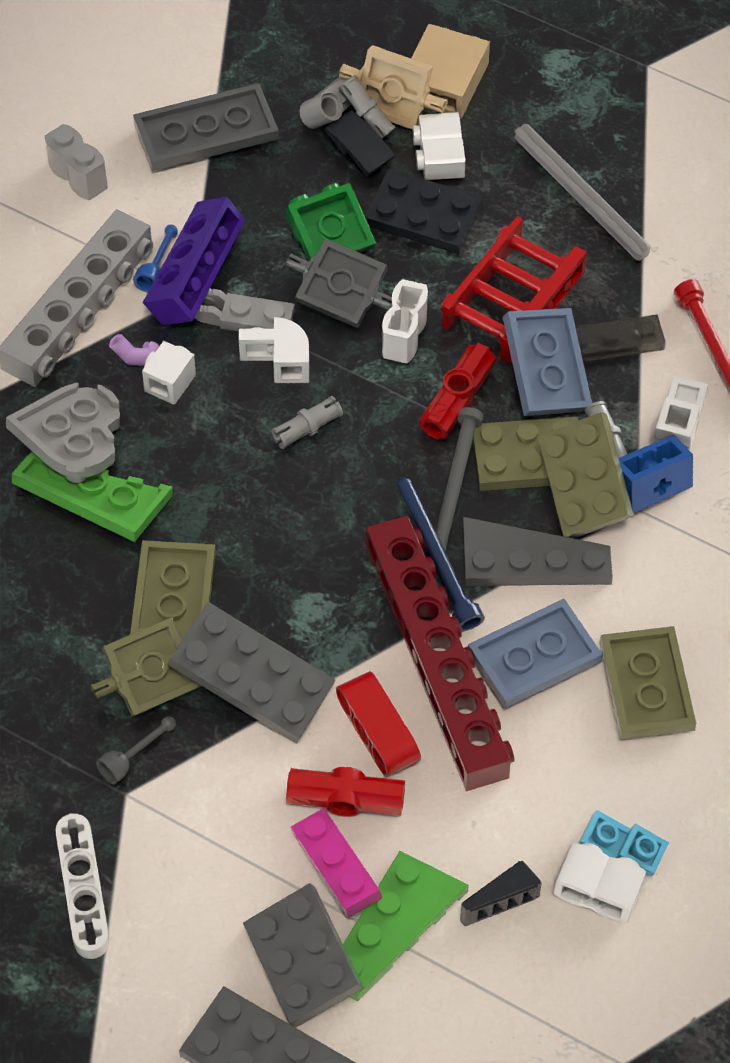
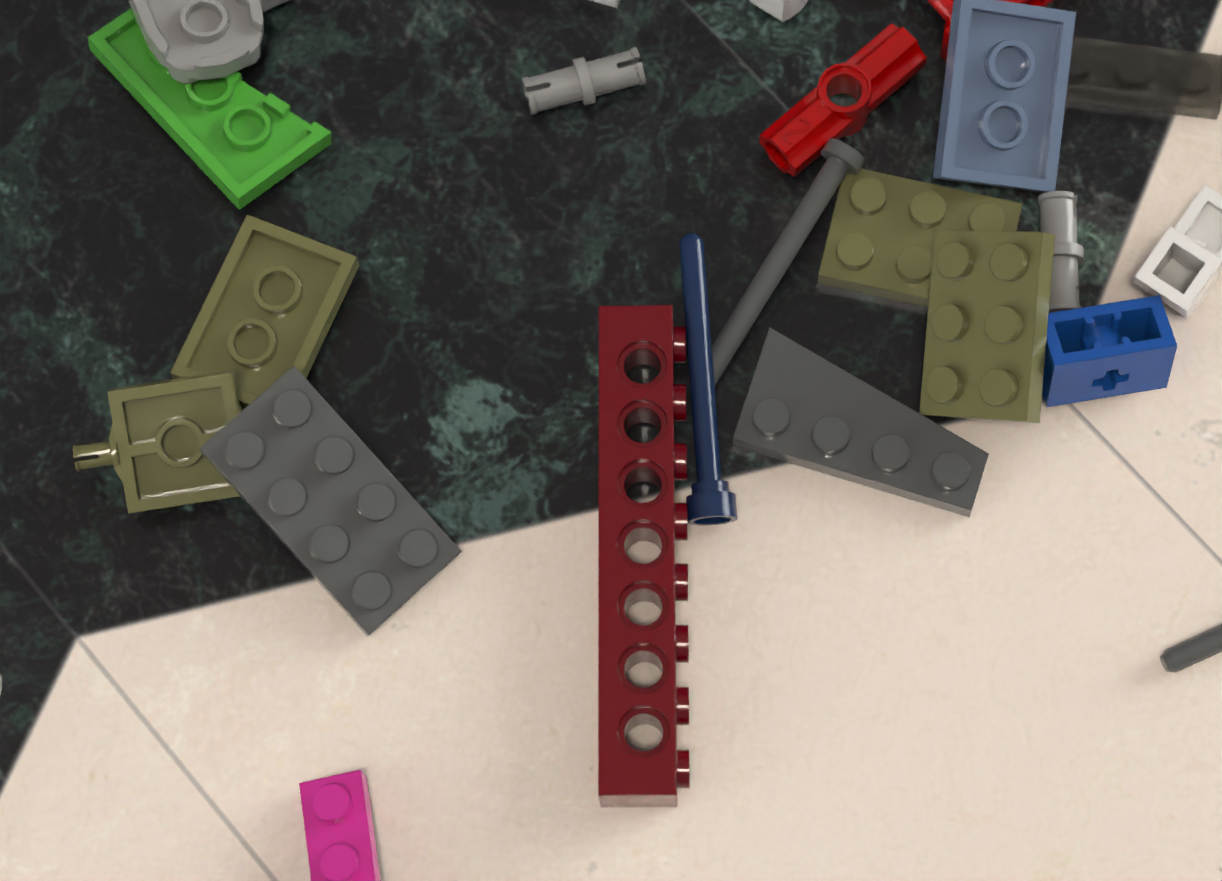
camera: 25 degrees right, 15 degrees up
(115, 764) = (76, 586): dark grey hinge -> none
(345, 791) = (405, 752): red piece -> none
(378, 723) = (498, 651): red beam -> none
(535, 653) = (794, 606): sand blue plate -> none
(647, 683) = (957, 718): olive plate -> none

